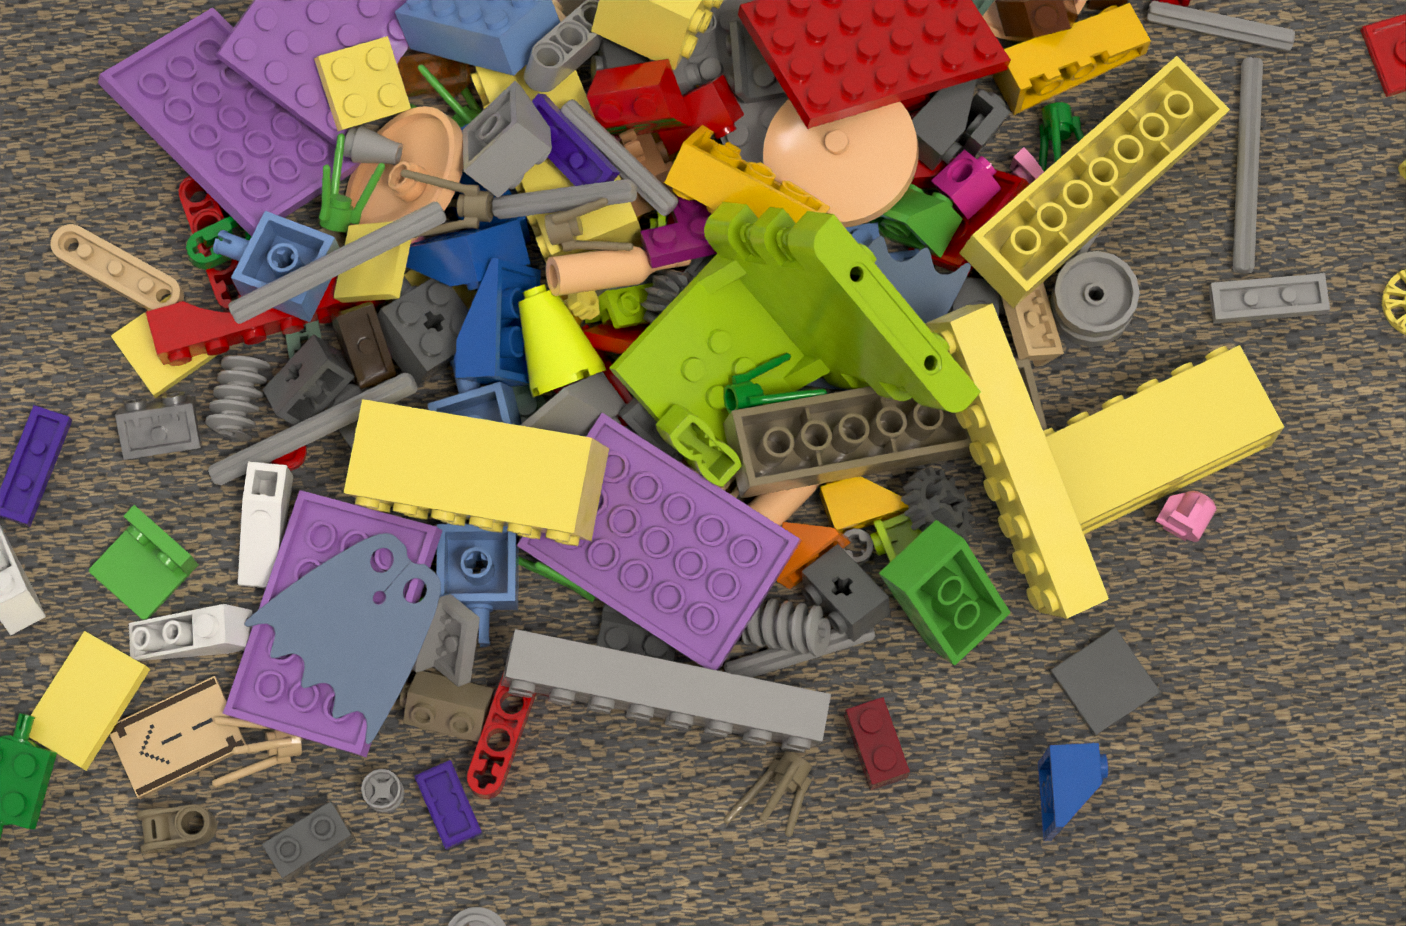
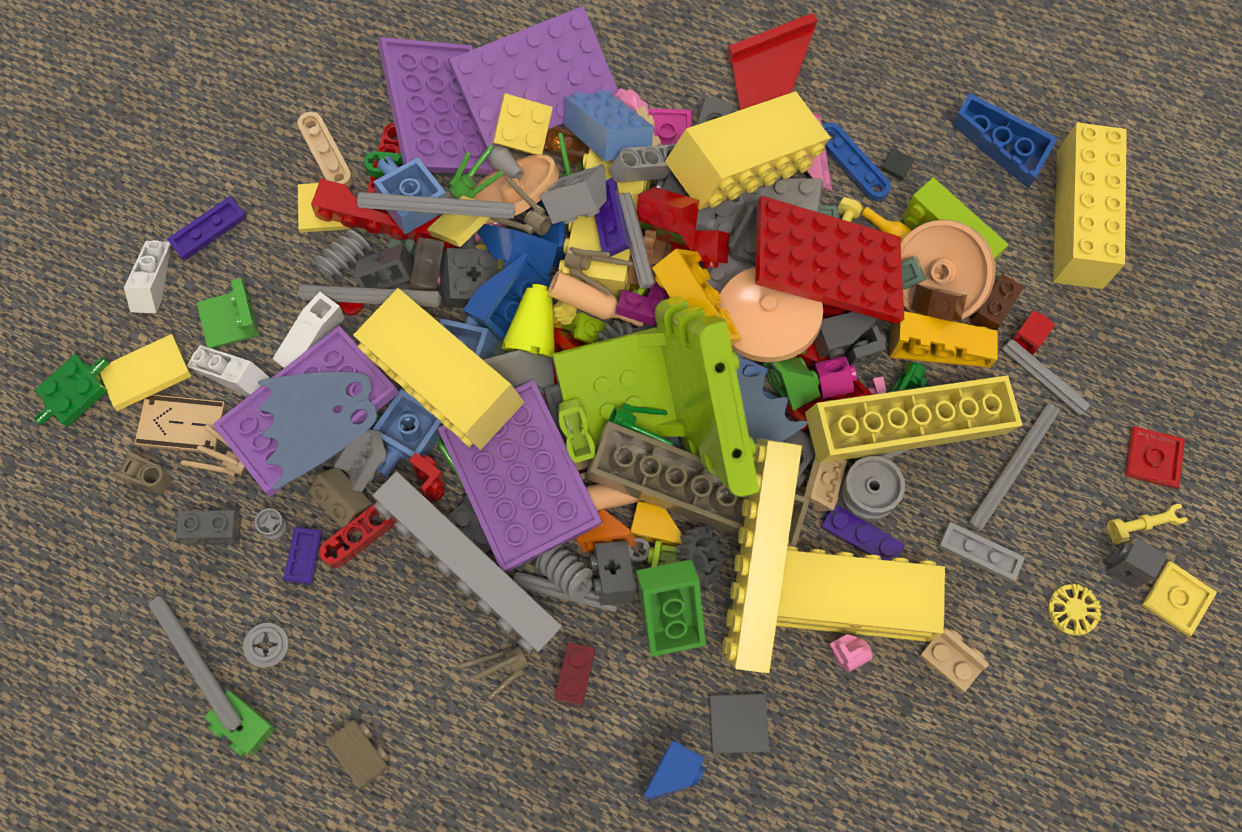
camera: 25 degrees right, 5 degrees down
(158, 426) = (289, 247): flat silver bracket -> none
(539, 608) = (433, 480): none -> red bracket
(563, 198) = (584, 242): light grey axle -> none
(1115, 363) = (861, 534): none -> dark purple plate
(1312, 449) = (954, 659): none -> tan bracket

